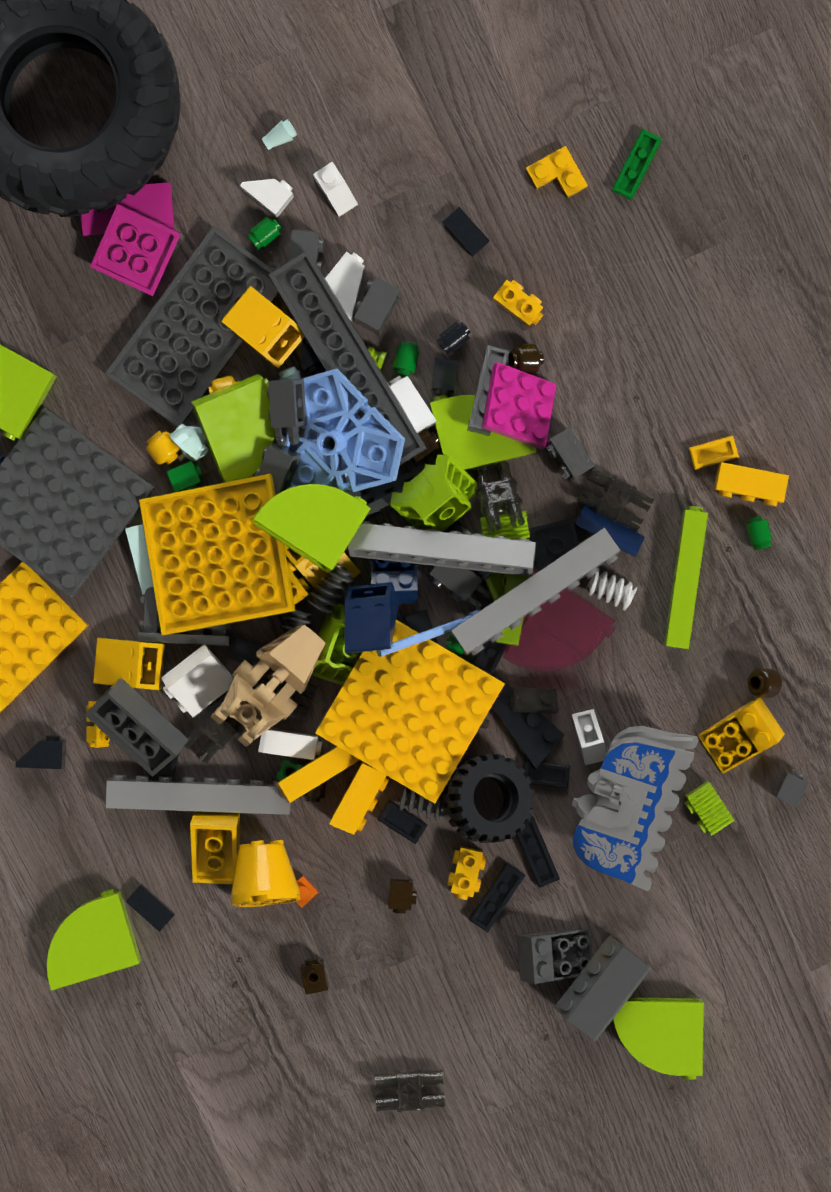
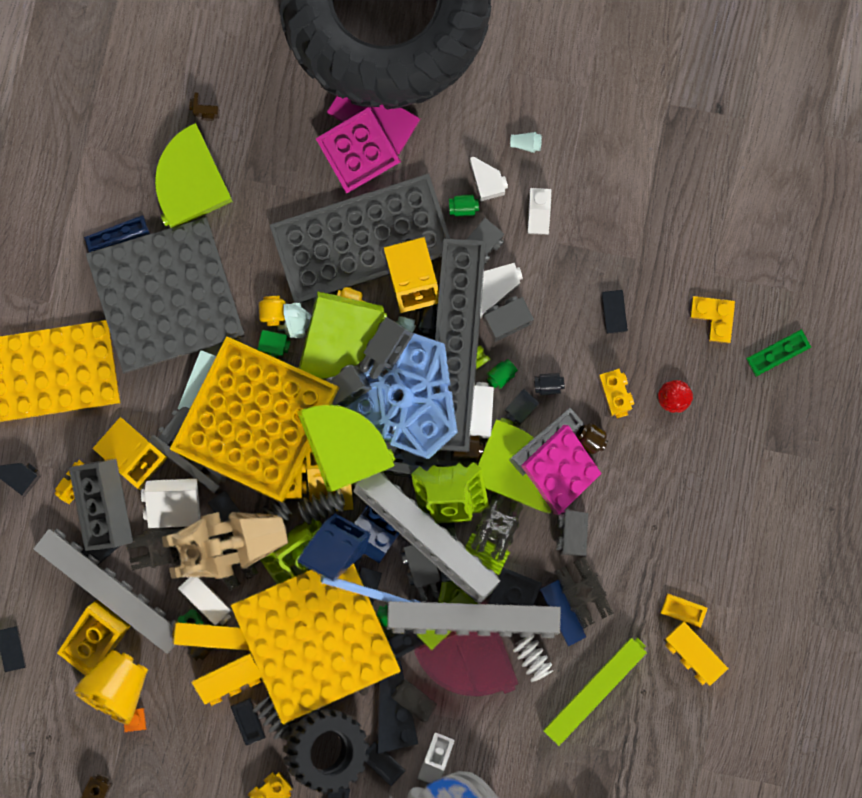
camera: 35 degrees right, 5 degrees down
(401, 895) = (206, 777): dark brown brick -> none
(573, 268) = (675, 396): none -> red hair
(759, 533) = (675, 696): green brick -> none

